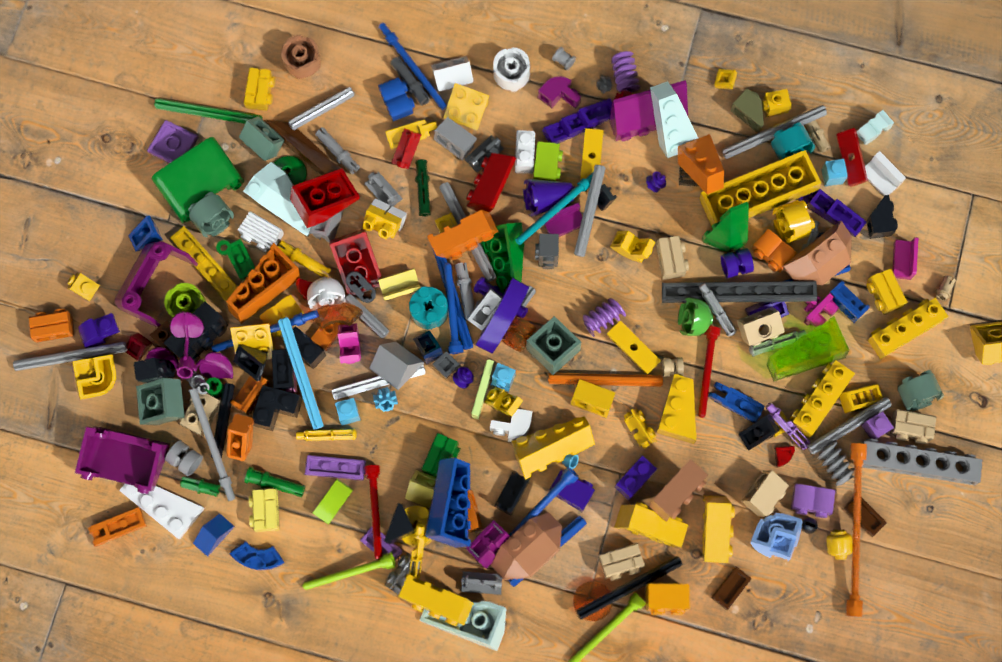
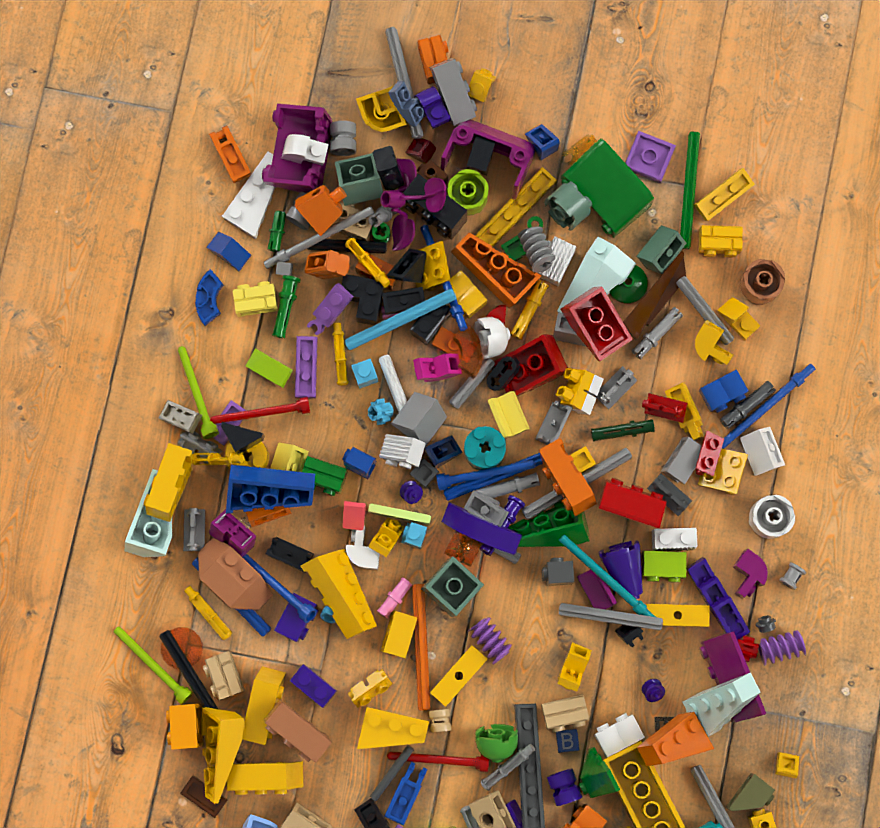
camera: 85 degrees right, 5 degrees up
(83, 307) = (453, 91): none -> light grey brick
(95, 350) = (407, 107): none -> sand blue slope
(114, 416) = (343, 135): none -> light grey wheel
(121, 454) = (303, 148): none -> white brick
(152, 287) = (481, 155): none -> black slope
(155, 199) = (579, 147): none -> clear yellow plate
(184, 435) = (321, 207): none -> orange torso
(217, 82) = (724, 194): none -> yellow plate
(237, 481) = (284, 268): none -> light grey piece
(241, 399) = (369, 264): none -> yellow piece
(248, 244) = (536, 248): none -> light grey piece
(282, 437) = (330, 308): none -> medium lavender plate
(330, 81) = (738, 318): none -> yellow slope
(349, 107) = (706, 344): none -> yellow brick
(371, 589) = (180, 416): none -> plate
(411, 246) = (553, 423): none -> light grey hinge
(424, 381) = (402, 451): none -> white brick
(432, 420) = (359, 462): none -> blue brick
(451, 114) = (709, 454): none -> hinge
(481, 428) = (354, 515): none -> coral slope
(559, 399) = (394, 598): none -> bright pink pin
(562, 573) = (208, 613): none -> yellow piece
(683, 564) = (223, 738): none -> yellow wedge
(693, 213) = (619, 735): none -> white brick
(696, 258) = (567, 740): none -> dark blue tile
(718, 413) = (391, 773): none -> dark grey bar

